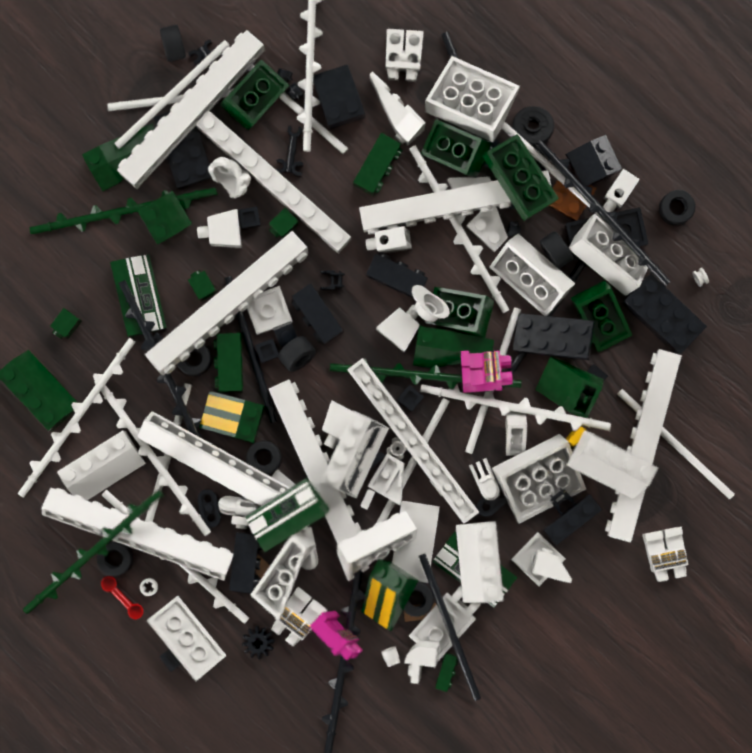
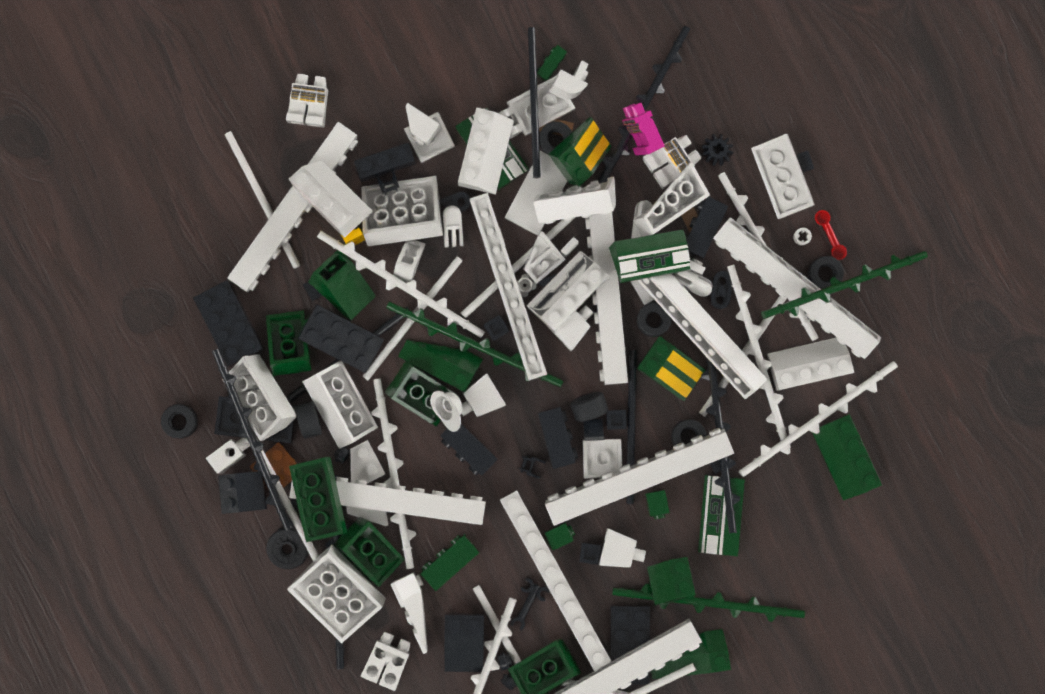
camera: 160 degrees left, 0 degrees up
(65, 324) = (800, 511): dark green brick -> none
(229, 362) = (656, 420): dark green brick -> none
(230, 176) = (594, 600): white hair -> none
(391, 656) = (598, 95): white hose -> none
(397, 238) = (456, 482): white torso -> none
(484, 372) = (418, 327): dark pink hips -> none
(700, 277) = (181, 347): white bush -> none

